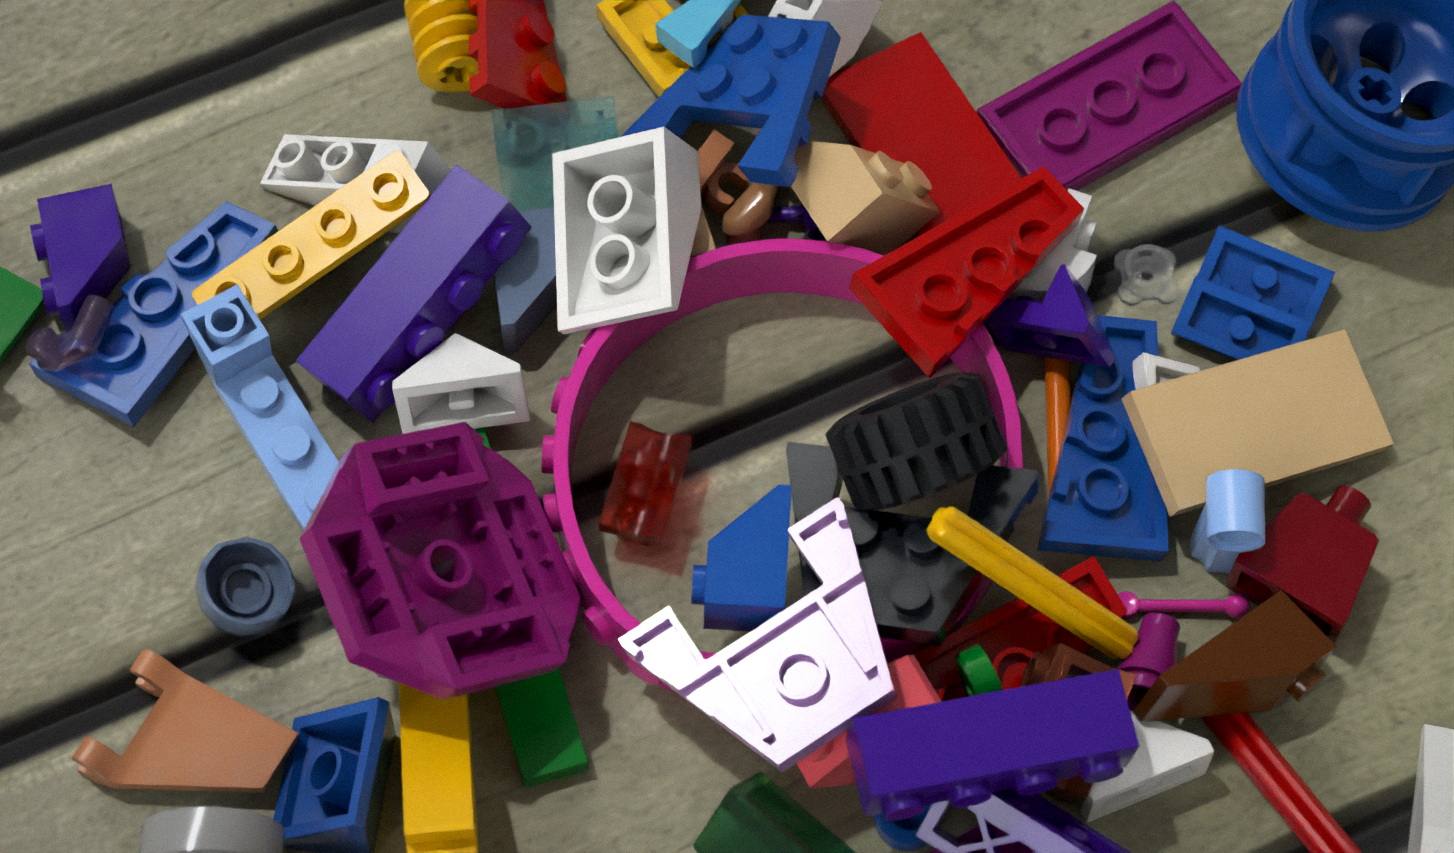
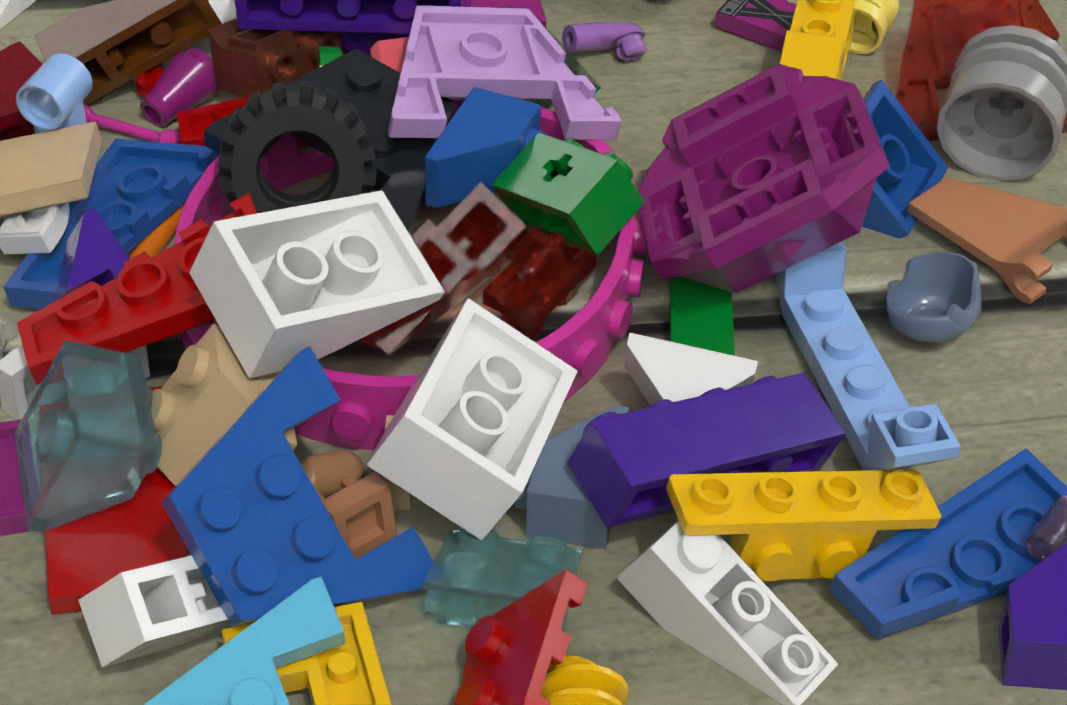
camera: 160 degrees left, 20 degrees down
(639, 519) = (569, 191): none -> green brick
(718, 438) = (463, 255): none -> clear red slope
(807, 237) = (310, 278): none -> white slope
(954, 131) = (85, 436): none -> clear light blue slope
(1032, 582) = (258, 73): yellow axle -> none

